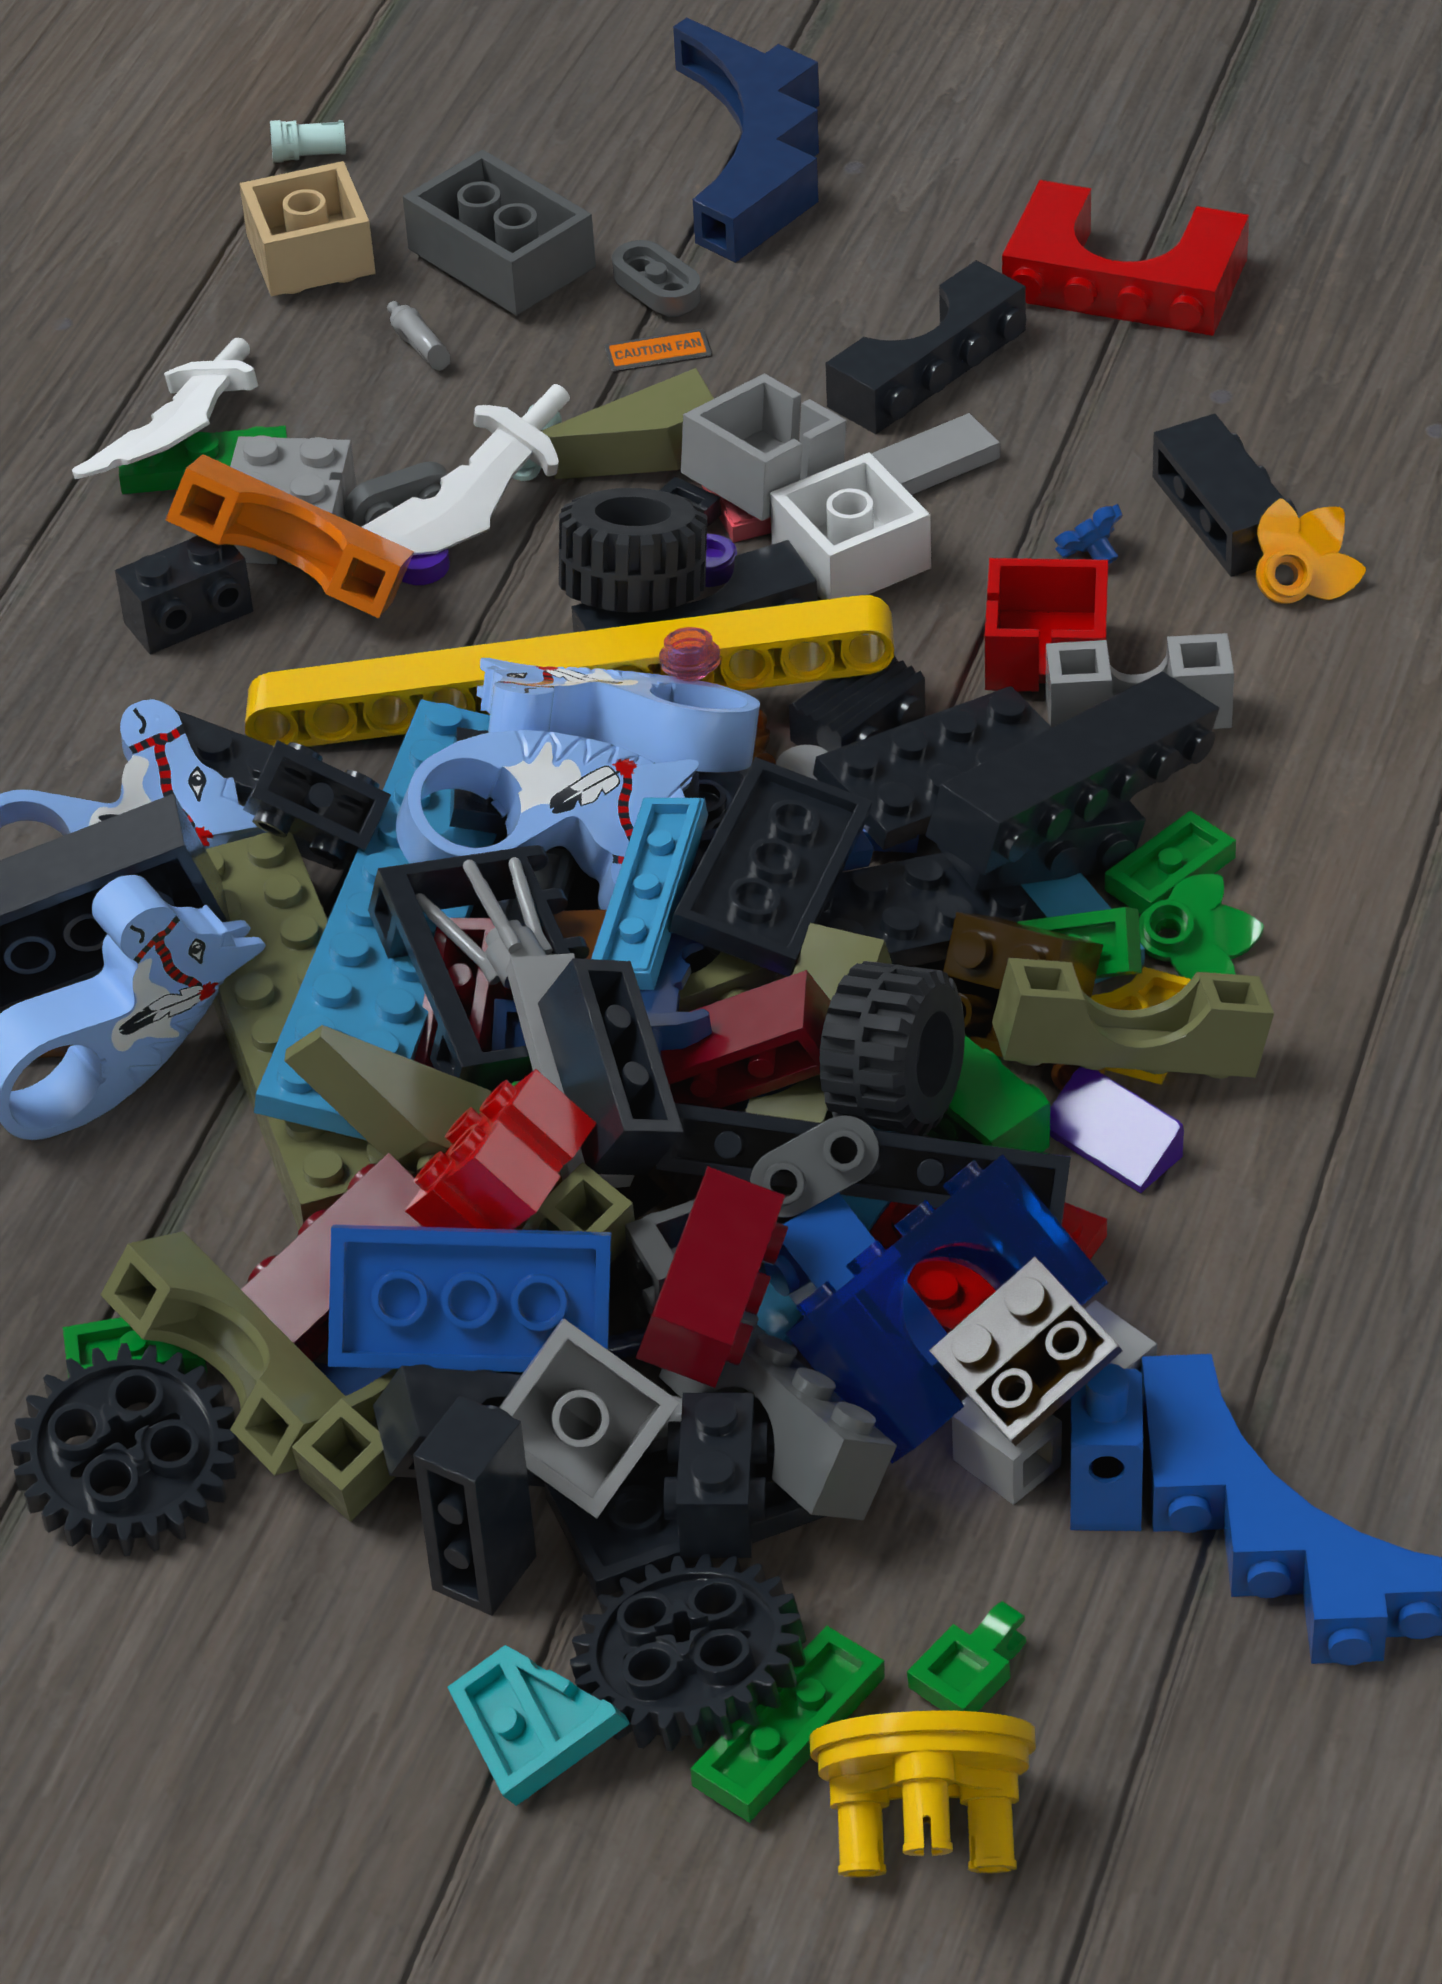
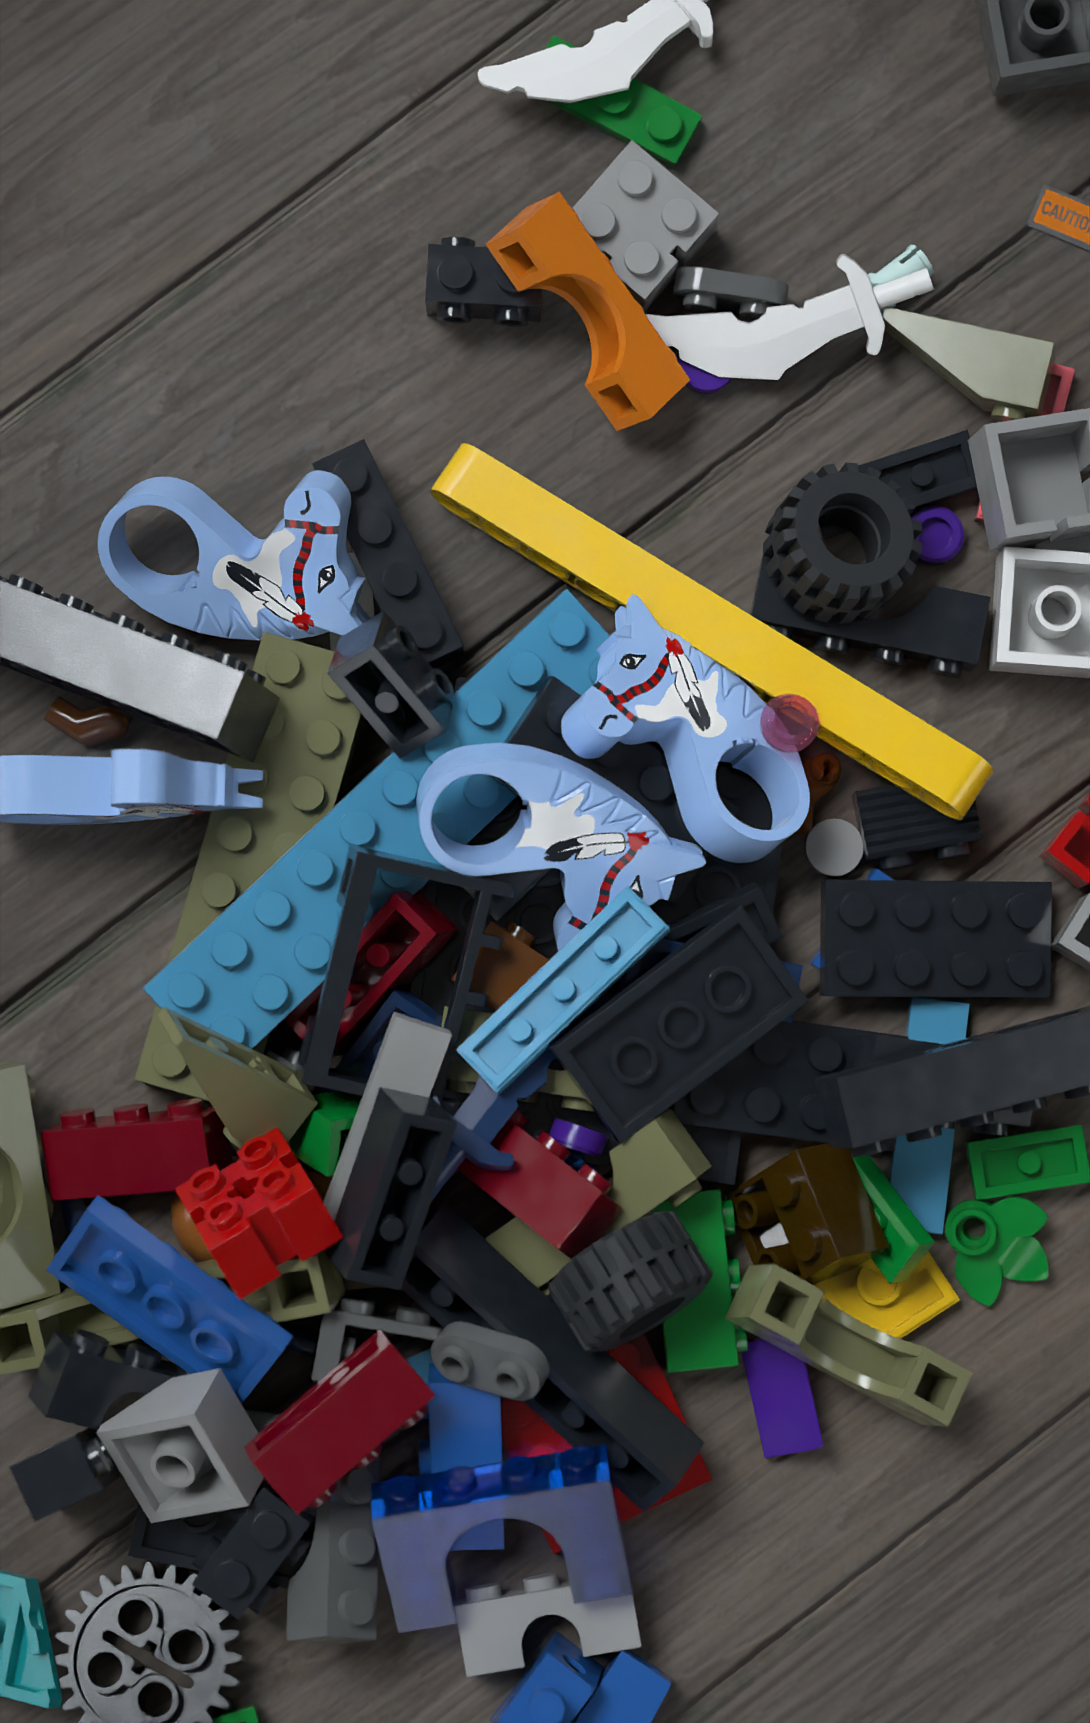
camera: 30 degrees right, 40 degrees up
(413, 330) = (891, 53): light grey piece -> none
(507, 938) = (416, 981): light grey plant -> none
(1025, 1351) = (513, 1649): slope -> none

